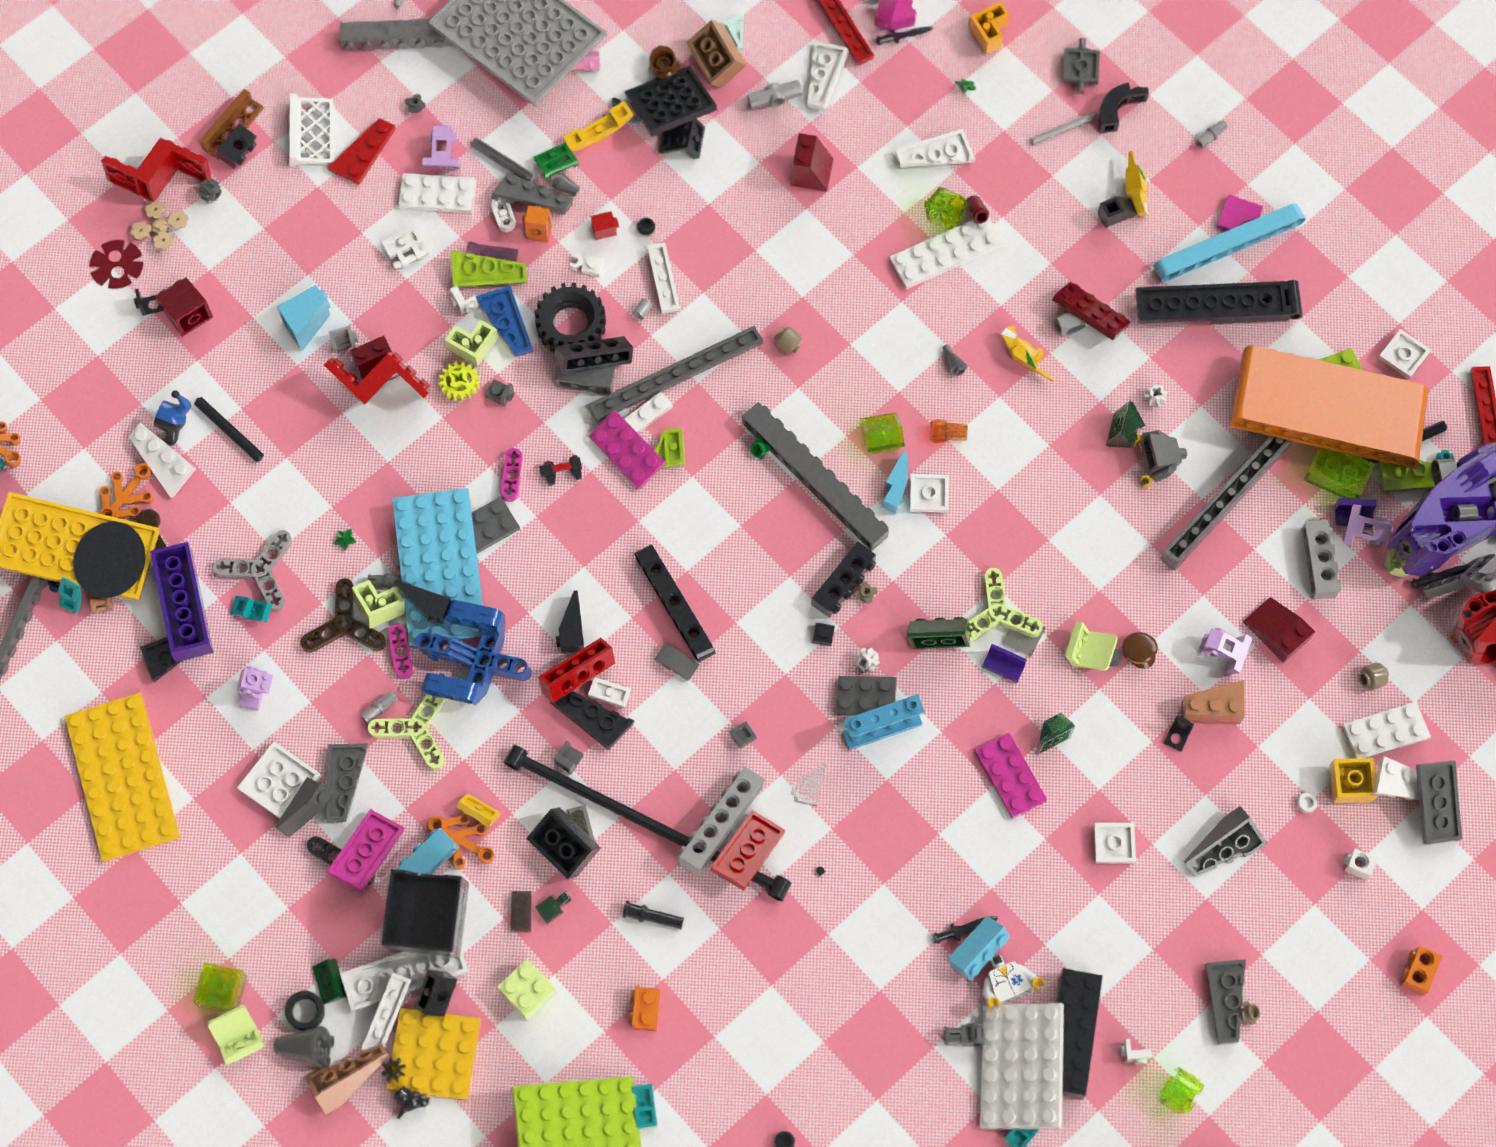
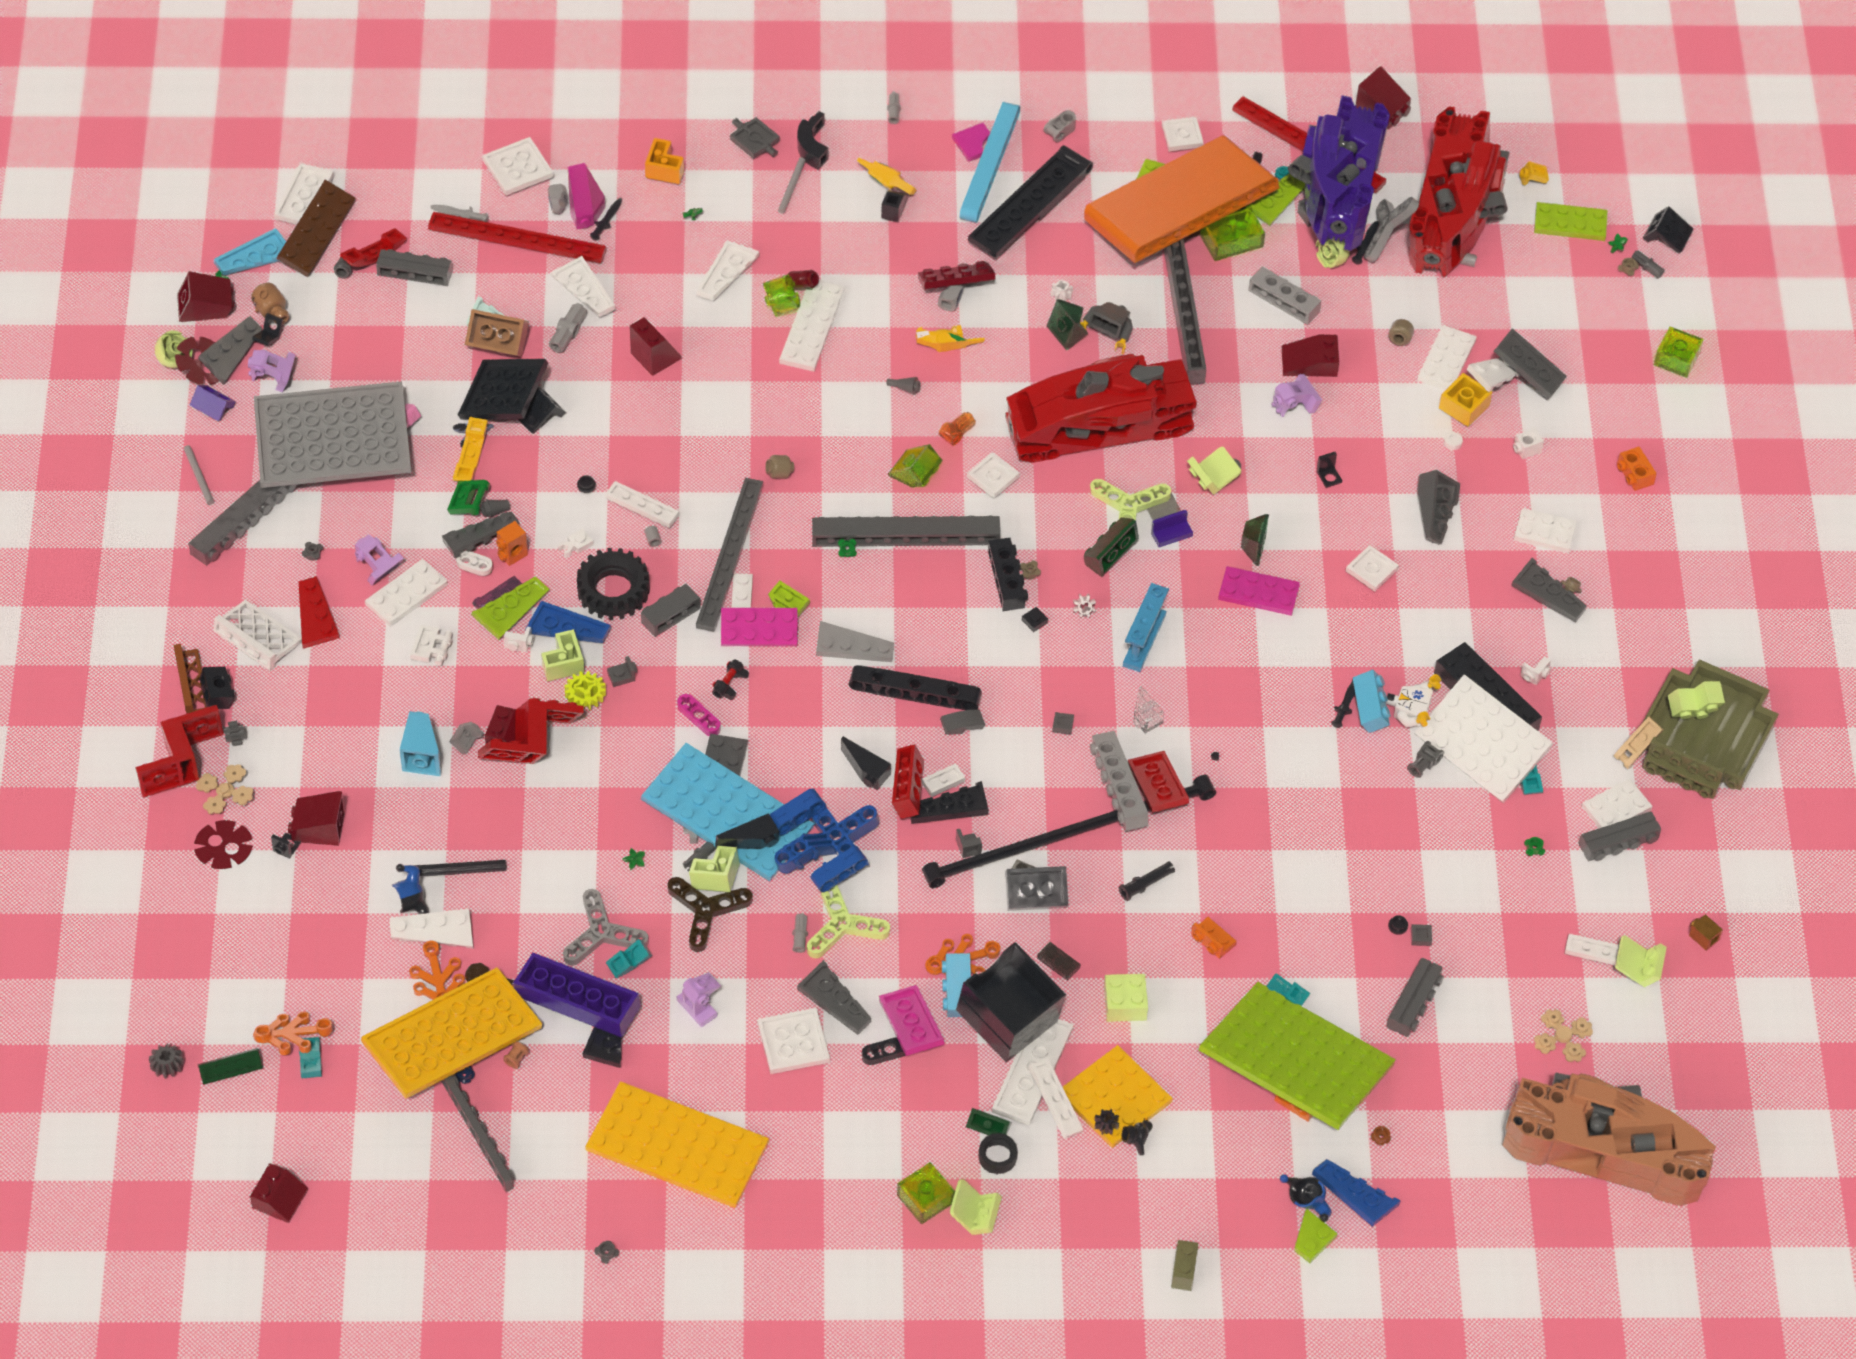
camera: 50 degrees left, 15 degrees down
(70, 595) = (489, 1065): teal slope -> none
(109, 559) = (489, 1016): black sticker -> none
(304, 806) = (833, 1032): dark grey slope -> none
(306, 1046) = (1029, 1169): dark grey cone -> none
(337, 1083) = (1079, 1165): nougat wedge -> none
(397, 665) = (763, 881): dark pink beam -> none
(435, 993) = (1073, 1052): black brick -> none
(478, 810) = (957, 927): yellow plate -> none
(501, 159) = (425, 531): flat silver axle -> none
(551, 908) = (1075, 939): clear green plate -> none
(593, 354) = (663, 585): black brick -> none
(604, 225) = (556, 508): red brick -> none
(663, 62) = (463, 372): reddish brown piece -> none
(674, 523) = (850, 644): none -> light grey wing
(864, 693) = (1108, 628): dark grey plate -> none
(896, 484) = (966, 487): medium azure slope -> none
(1060, 518) = (1101, 407): none -> red piece
(1140, 649) = (1244, 445): reddish brown piece -> none
(1180, 1091) = (1590, 663): clear neon green brick -> none
(1216, 704) = (1332, 432): nougat wedge -> none
(1287, 946) = (1545, 530): none -> white plate
(1316, 262) = (1061, 125): none -> light grey piece
(1344, 506) = (1269, 250): dark purple panel -> none
(1356, 524) = (1283, 252): lavender tile -> none

